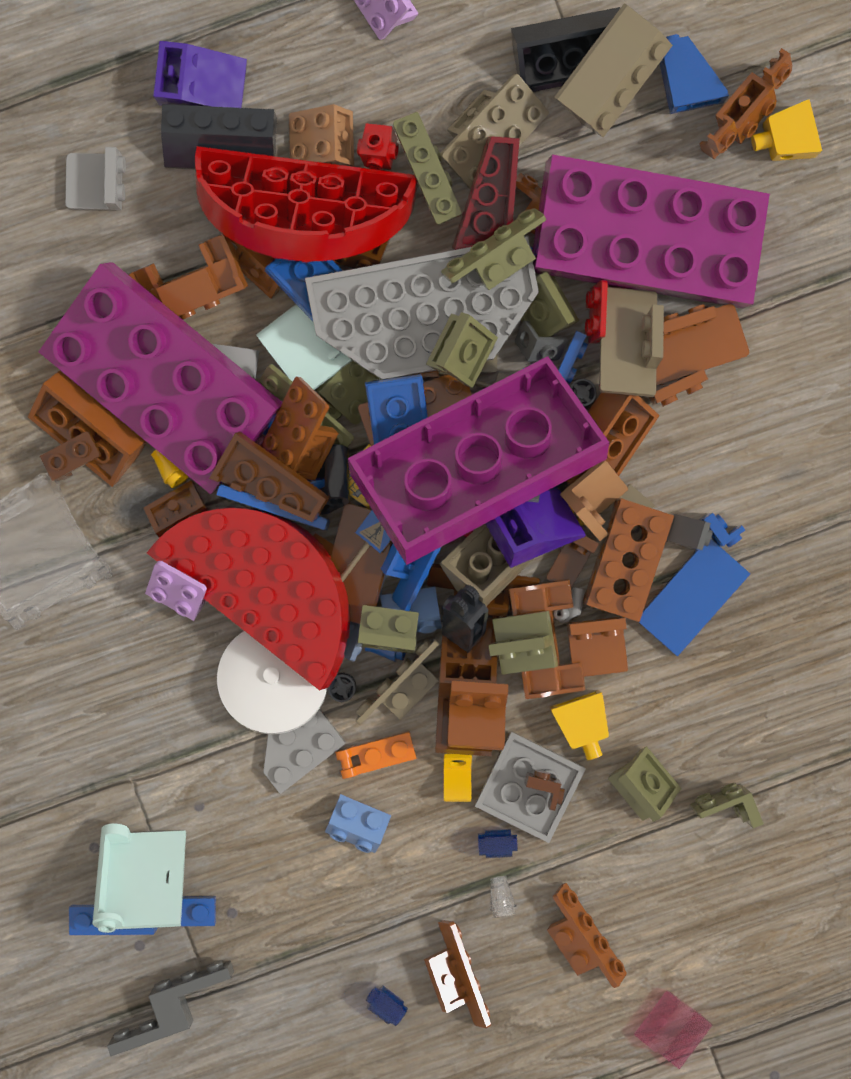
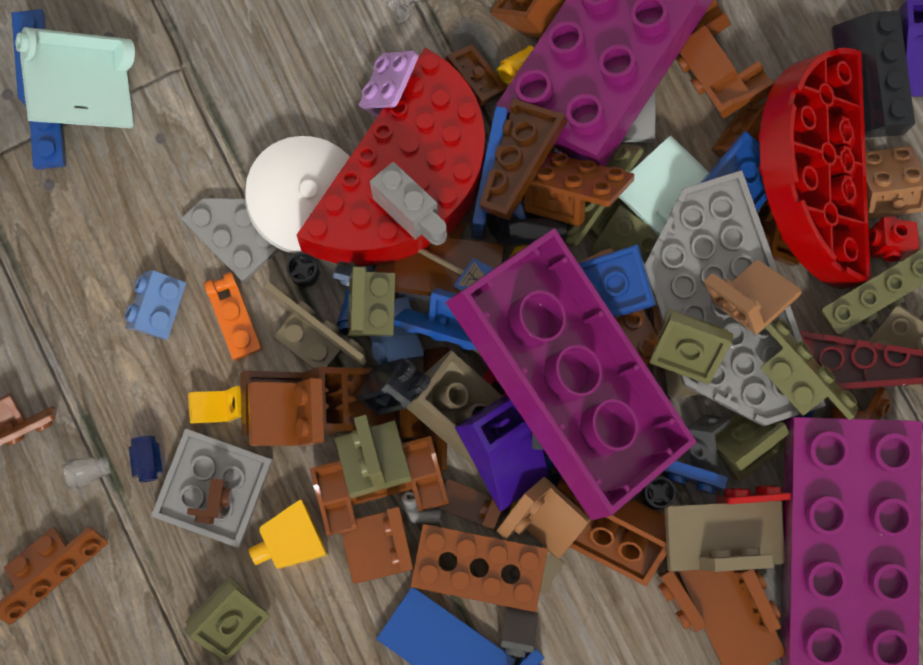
camera: 85 degrees right, 10 degrees down
(307, 586) = (408, 204): none -> light grey brick
(425, 286) = (753, 296): none -> medium nougat bracket

